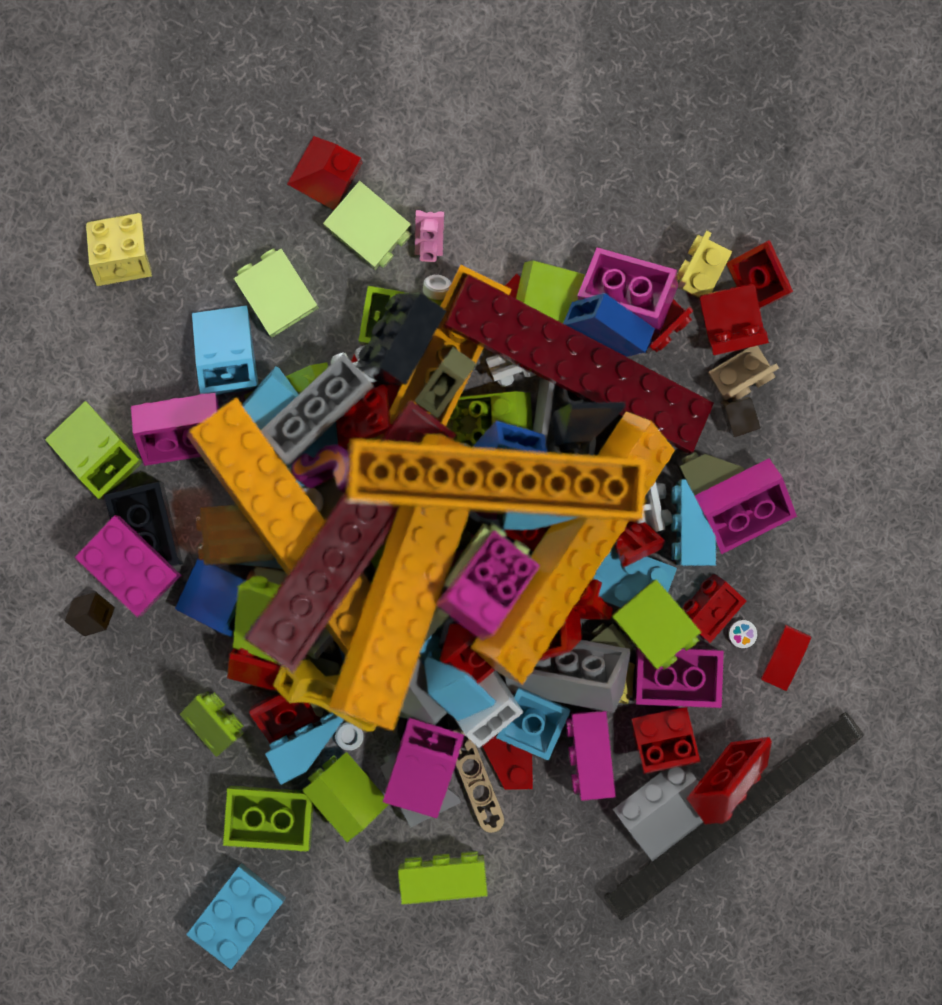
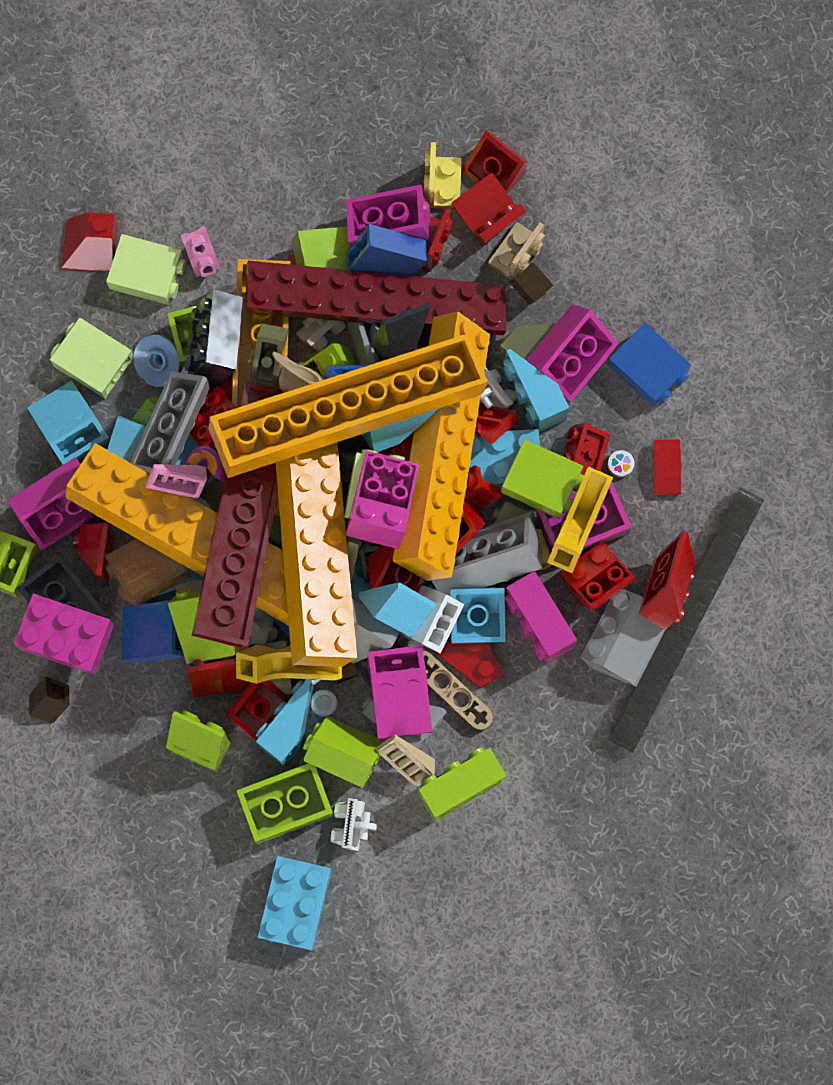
camera: 25 degrees left, 10 degrees down
(195, 489) = (93, 545): none -> red slope
(301, 474) = (192, 480): none -> bright pink slope
(327, 868) = (355, 826): none -> white hips
(329, 324) = (148, 362): none -> light blue dish
(402, 833) = (422, 766): none -> tan slope
(463, 421) = (294, 375): none -> tan piece
(672, 684) = (580, 519): none -> yellow arch
(817, 551) = (650, 365): none -> blue brick

